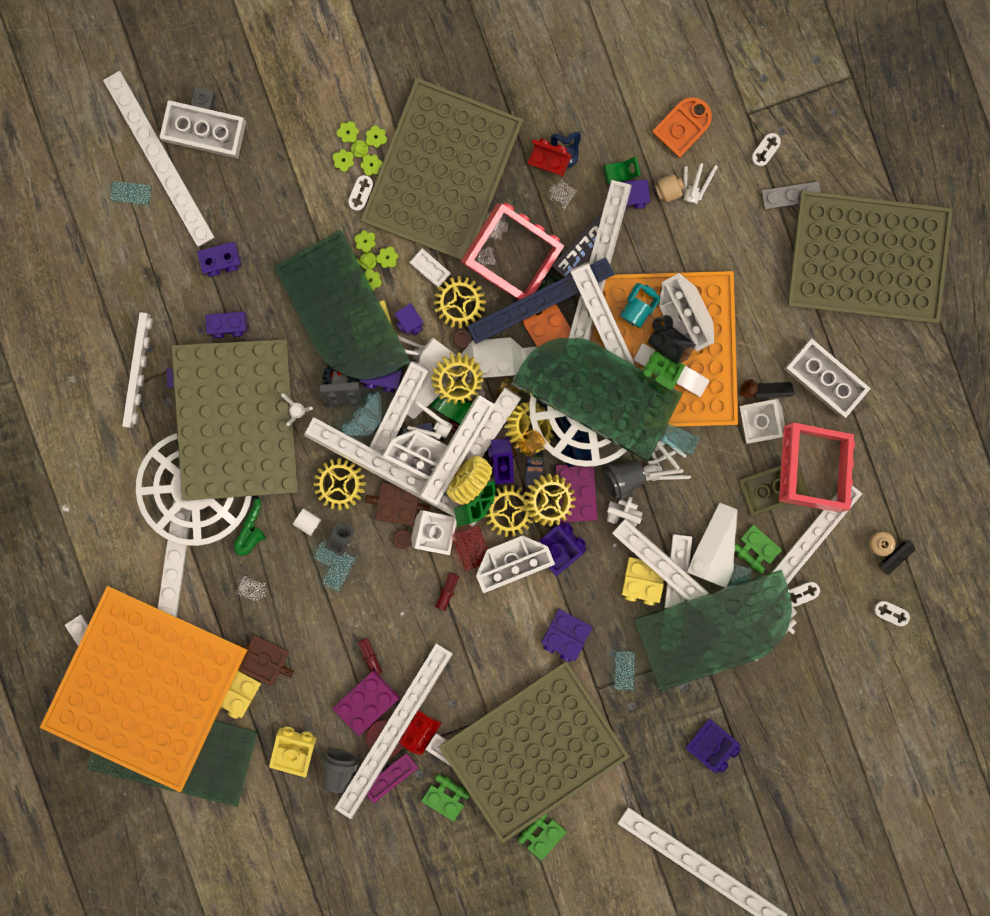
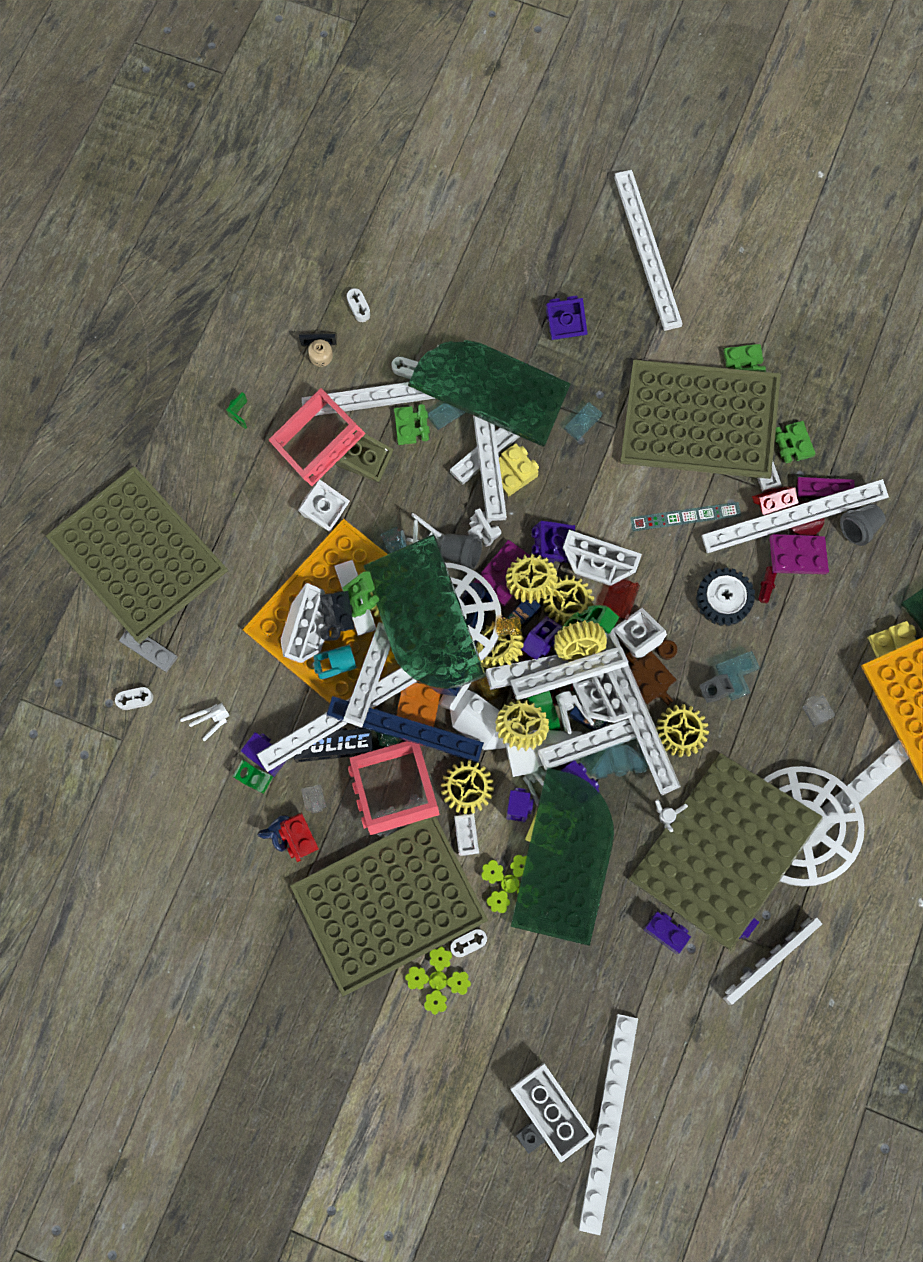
camera: 135 degrees left, 15 degrees down
(131, 193) = (656, 1114): clear light blue plate -> none
(219, 259) = (629, 991): dark purple brick -> none
(248, 539) = (790, 751): green piece -> none
(264, 660) = (852, 649): reddish brown plate -> none
(292, 751) = (885, 565): light yellow plate -> none
(307, 521) = (731, 723): white piece -> none
(339, 389) = (620, 801): dark grey plate -> none
(388, 633) = (737, 590): none -> wheel
(447, 591) = (667, 583): dark red axle -> none
(462, 338) = (490, 759): reddish brown tile -> none
(478, 661) = (685, 516): none -> clear light blue sticker
(566, 635) = (605, 479): dark purple plate -> none
(669, 188) = (230, 732): tan head -> none
(682, 126) = (176, 769): orange plate -> none
(716, 549) = (443, 443): white wedge -> none
(748, 389) = (312, 536): reddish brown tile -> none
(772, 390) = (295, 521): black slope -> none
(827, 378) = (249, 495): white brick -> none
(908, 440) = (234, 407): none -> green bracket

